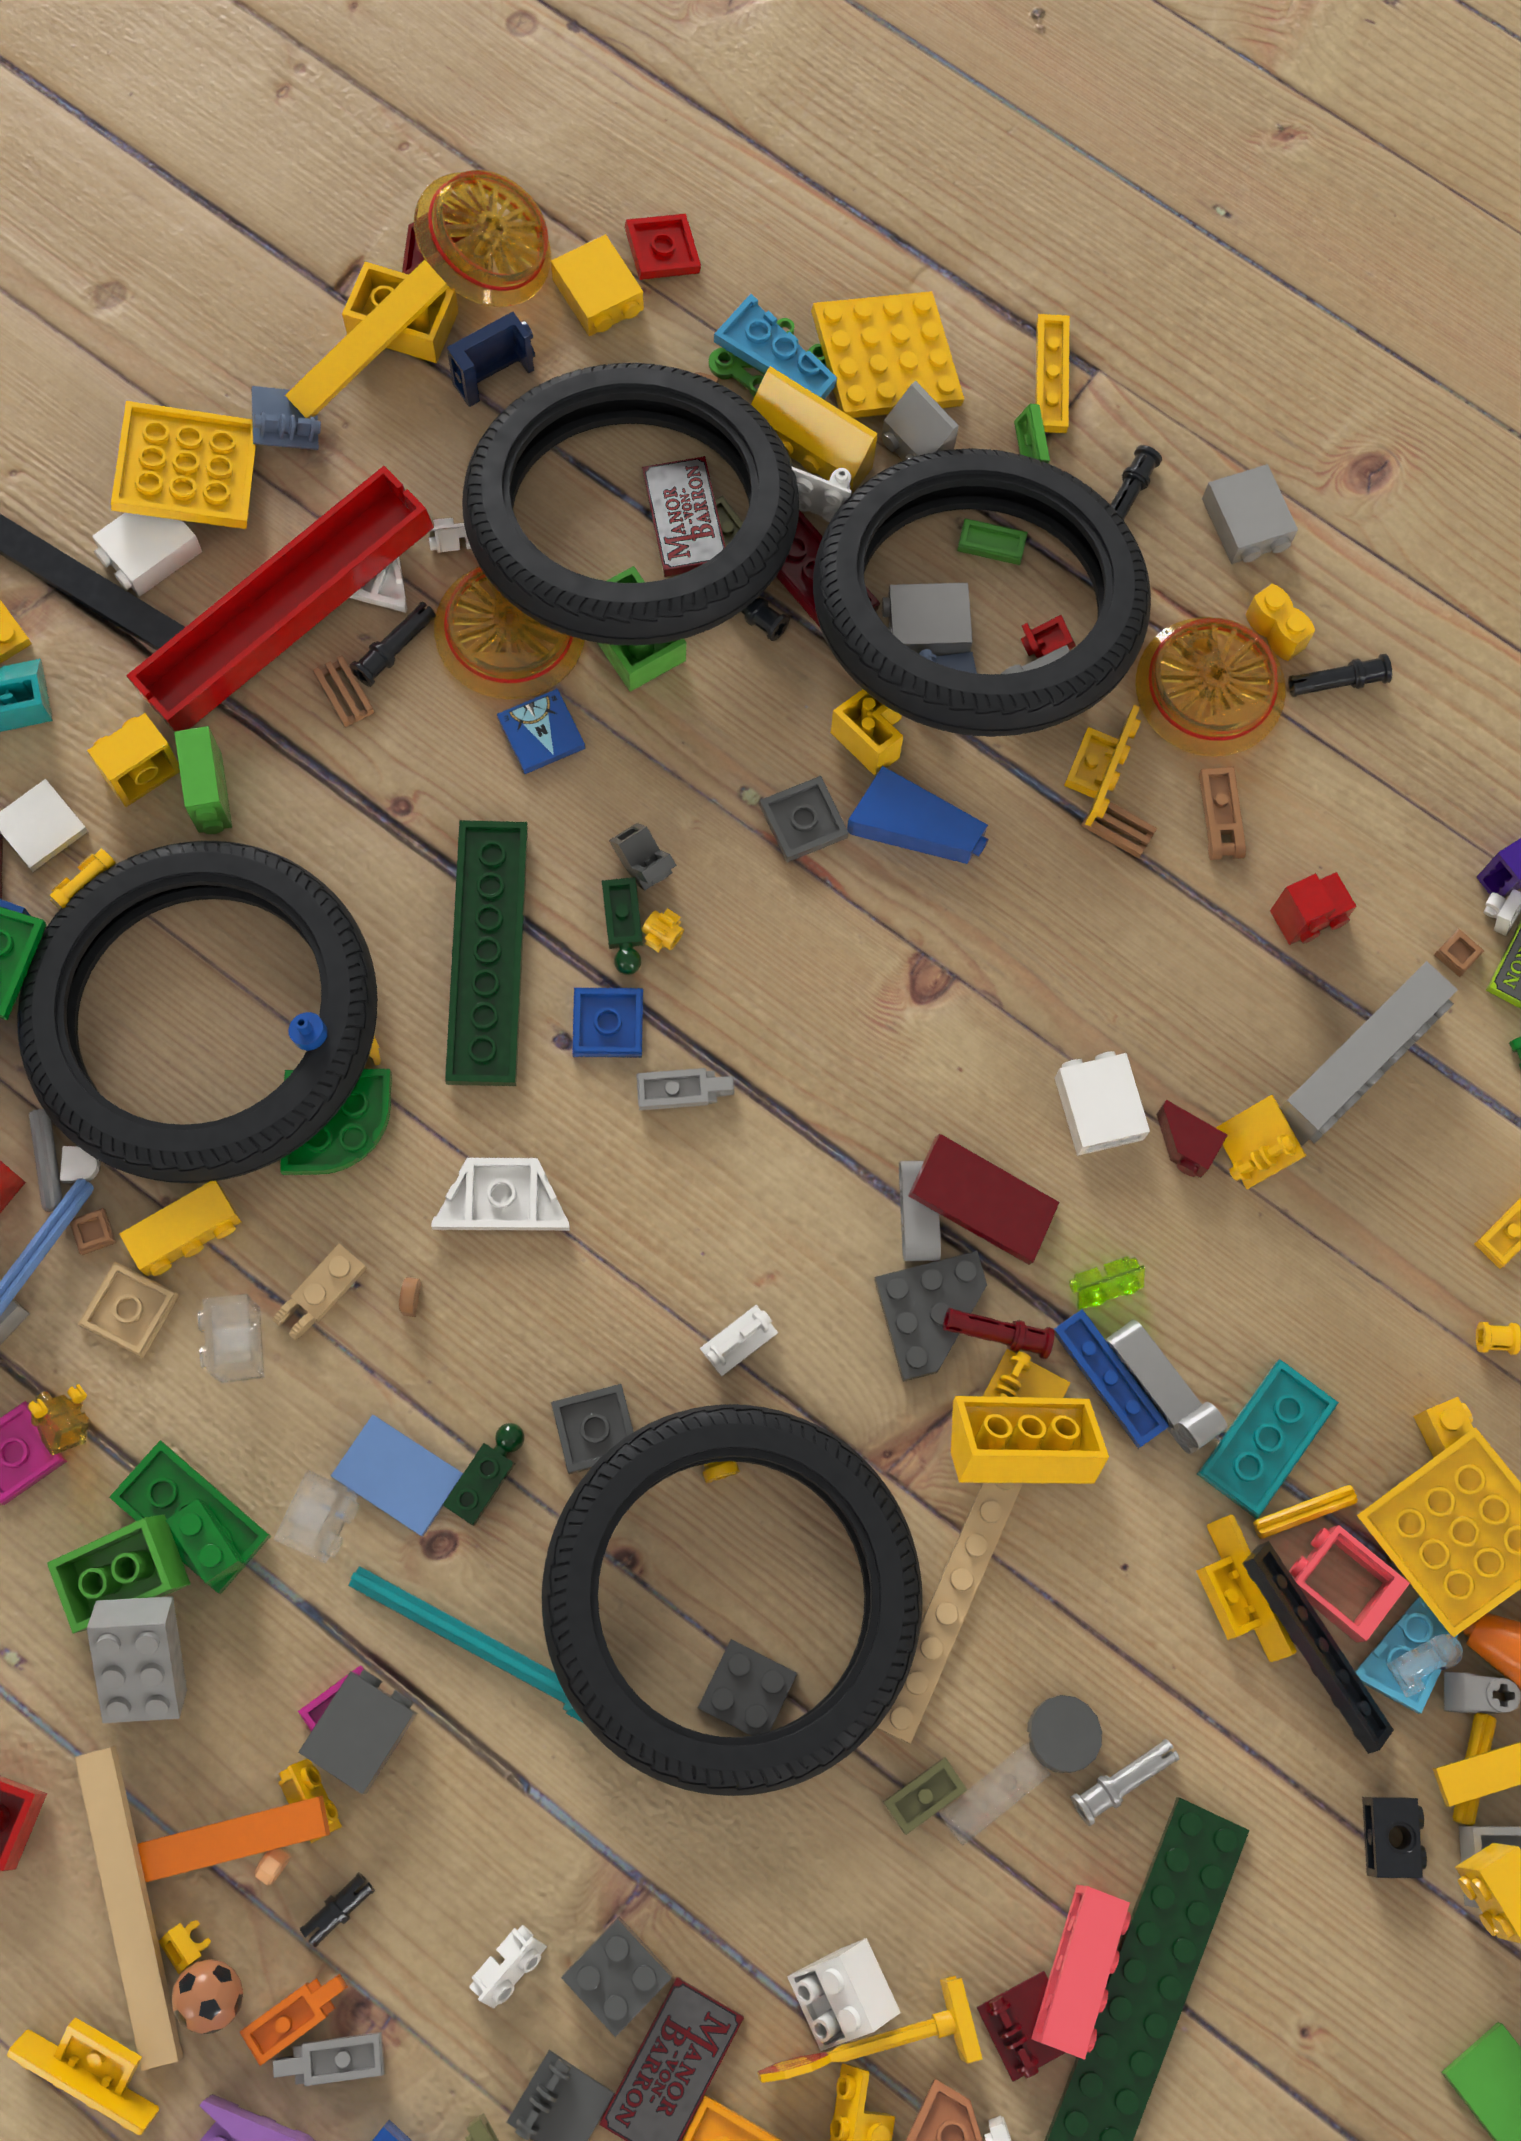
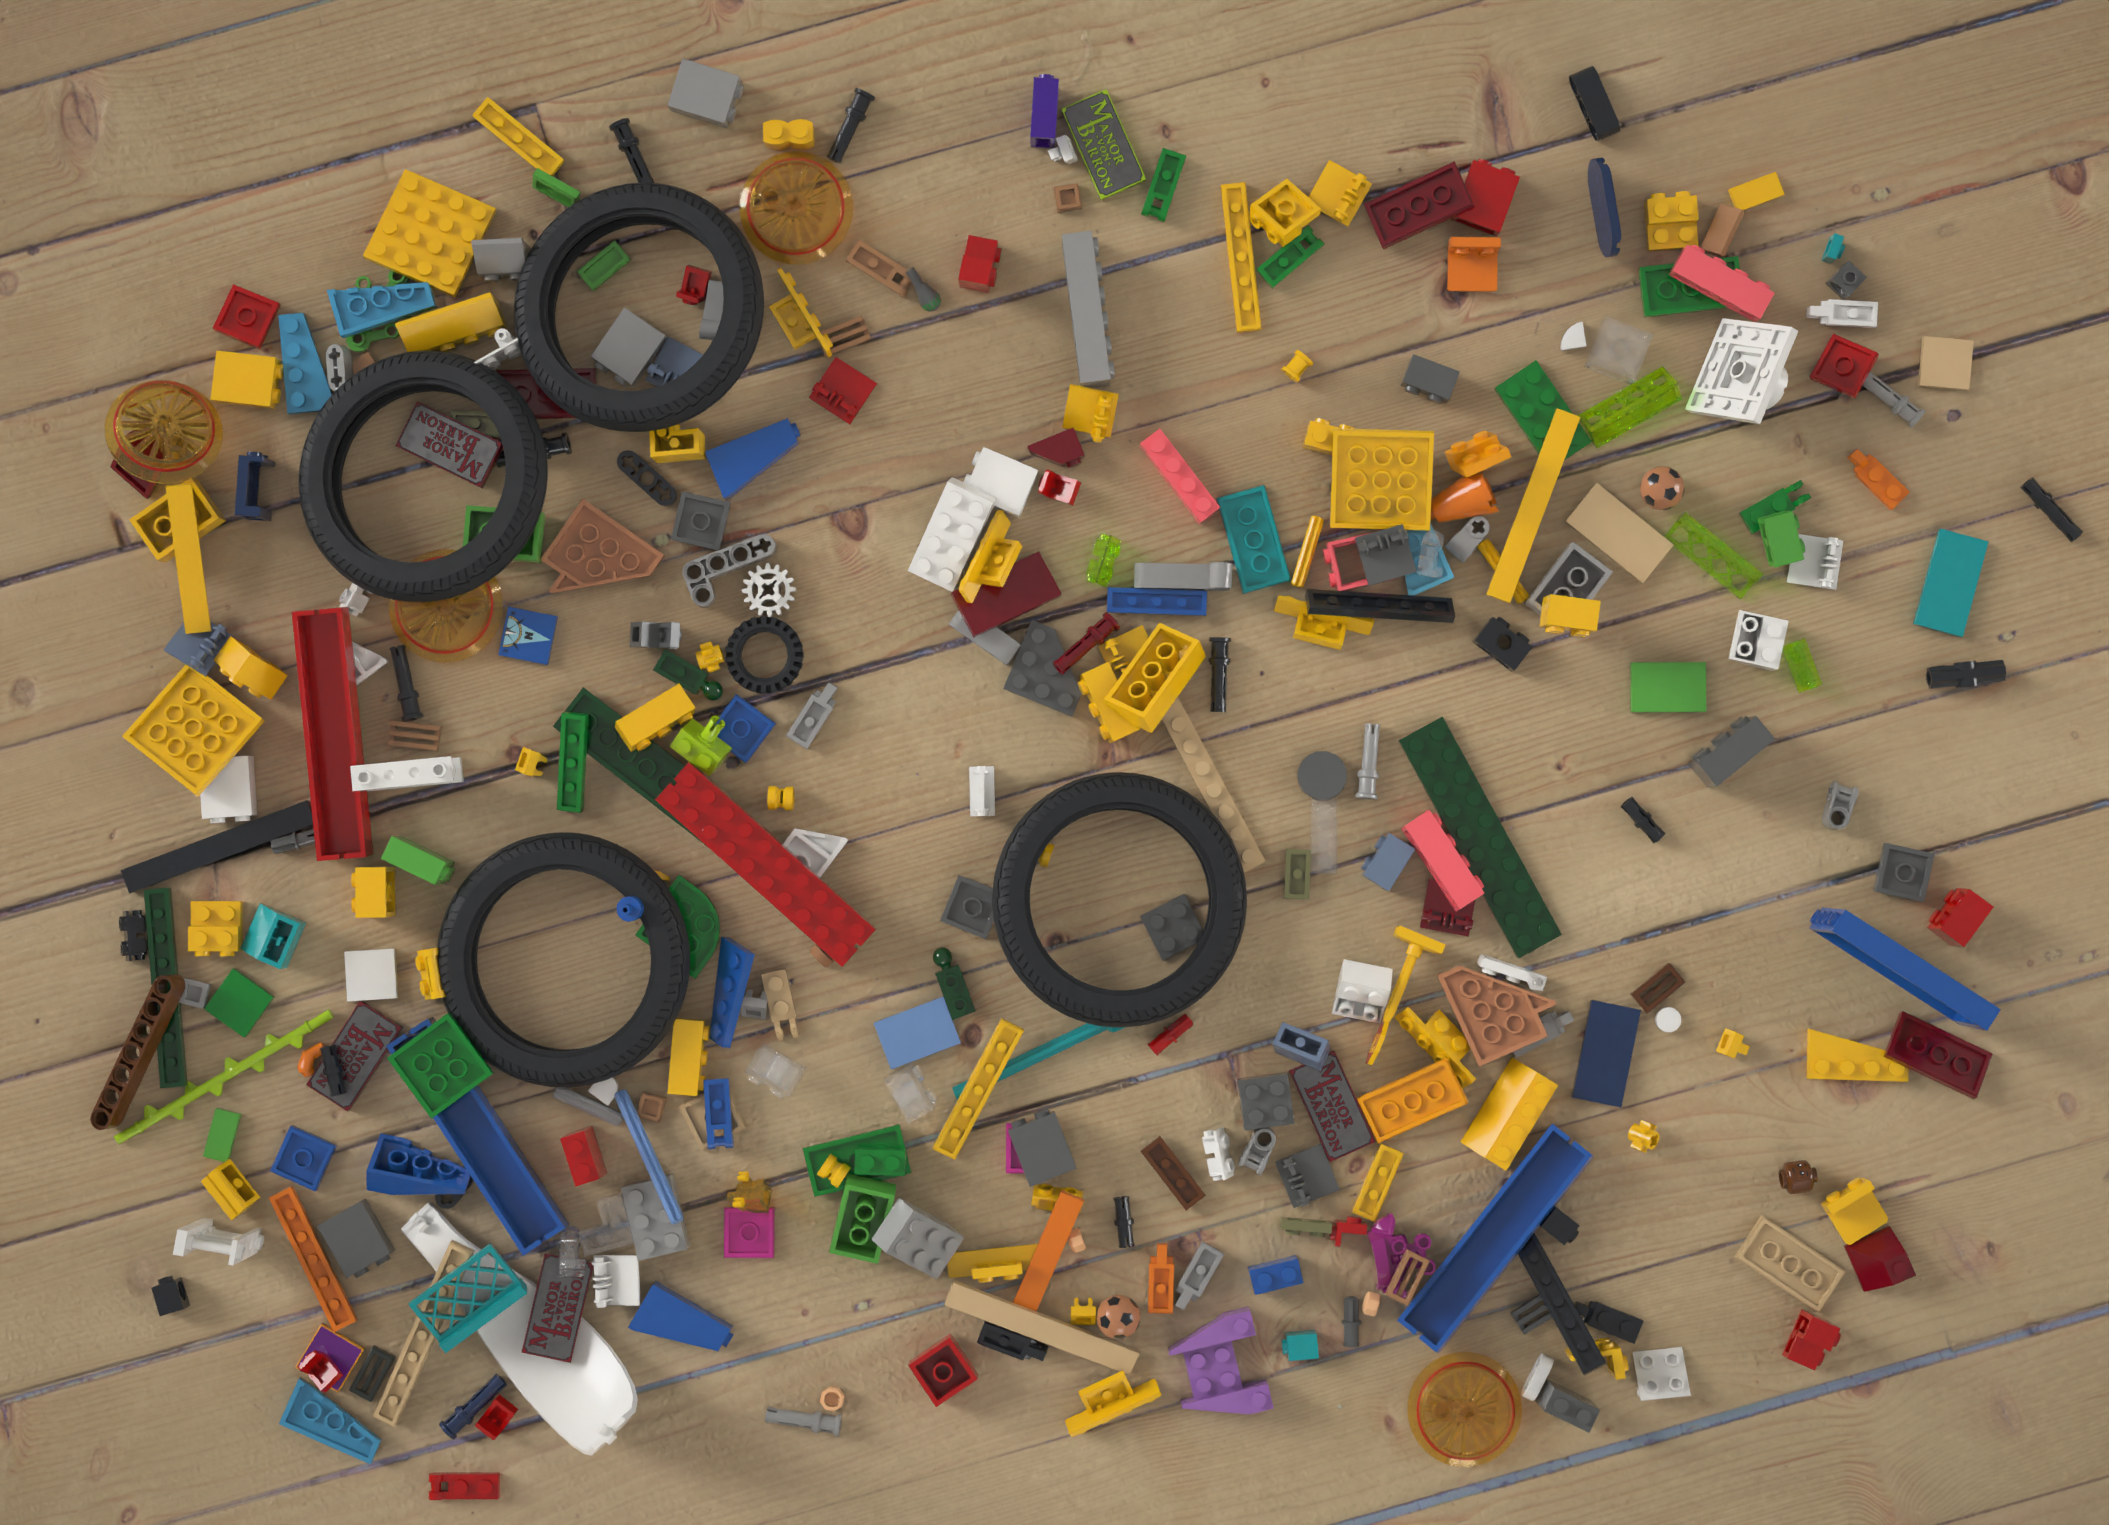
camera: 45 degrees left, 15 degrees up
(83, 1881) = (1011, 1342): none -> black hinge
(135, 648) = (293, 841): none -> dark grey axle
(135, 1310) = (718, 1112): none -> blue plate
(155, 1495) = (833, 1170): none -> yellow wheel
(170, 1778) = (991, 1262): none -> yellow bracket
(292, 472) = (249, 669): none -> yellow brick
(293, 703) = (407, 774): none -> white fence
(294, 1263) = (754, 1007): none -> light grey tile
(300, 1216) = (731, 982): none -> blue wing
(379, 1597) = (978, 1088): none -> yellow tile
(401, 823) = (528, 761): none -> yellow tile
(434, 865) = (572, 762): none -> green plate
(442, 1926) = (1173, 1173): none -> reddish brown plate
(471, 1156) = (766, 864): none -> red piece
(545, 2016) = (1257, 1151): none -> light grey piece
(550, 918) = (655, 718): none -> yellow brick
(556, 988) = (702, 745): none -> lime brick
(561, 1119) = (774, 798): none -> yellow wheel
(614, 1788) = (1170, 1034): none -> red axle
(656, 326) = (302, 367): none -> dark azure wing
(686, 356) = (338, 367): none -> light grey beam
(686, 737) = (597, 552): none -> nougat wing
(703, 949) = (737, 642): none -> black tyre
(719, 1969) = (1301, 1046): none -> sand blue brick
(770, 939) = (777, 581): none -> white gear
(779, 882) = (730, 565): none -> light grey beam
(813, 723) = (629, 471): none -> black beam
(961, 1377) = (1097, 685): none -> yellow brick
(1004, 1088) = (952, 534): none -> white brick
(1010, 1151) = (992, 560): none -> yellow bracket
(1025, 1900) = (1387, 862): none -> sand blue brick
(1061, 866) = (842, 390): none -> red hinge
(1098, 1505) = (1219, 662): none -> black pin
(1147, 1171) = (1059, 487): none -> red bracket
(1234, 880) = (928, 297): none -> dark grey piece
(1269, 1297) = (1179, 476): none -> coral brick
(1383, 1605) = (1385, 554): none -> dark grey hinge

